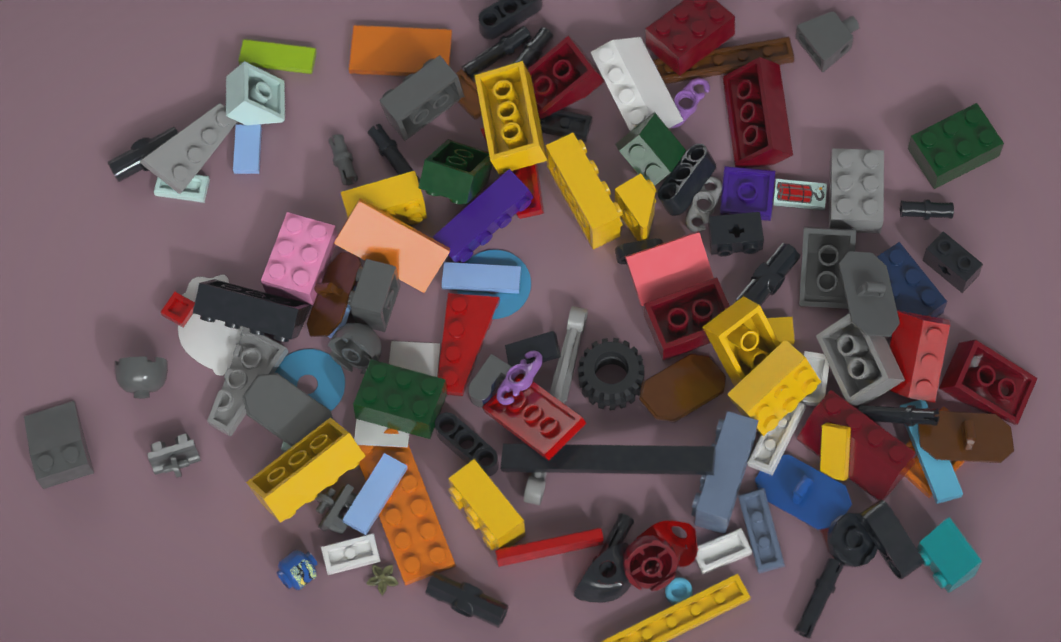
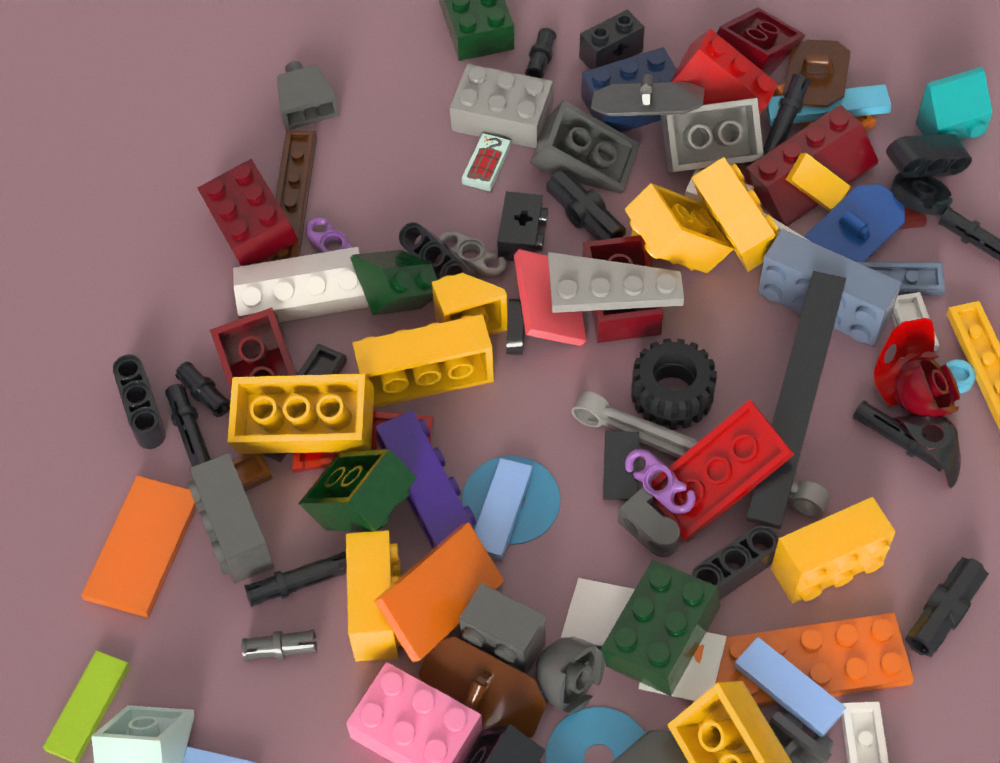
camera: 80 degrees left, 10 degrees down
(382, 578) = (901, 709): olive plant -> none
(463, 337) = (577, 545): red wing -> none
(549, 547) = (889, 494): red tile -> none
(675, 297) = (609, 285): none -> light grey wing
(682, 387) = (710, 317): reddish brown shield -> none
(747, 191) = (468, 210): dark purple tile -> none
(757, 114) = (375, 178): dark red slope -> none

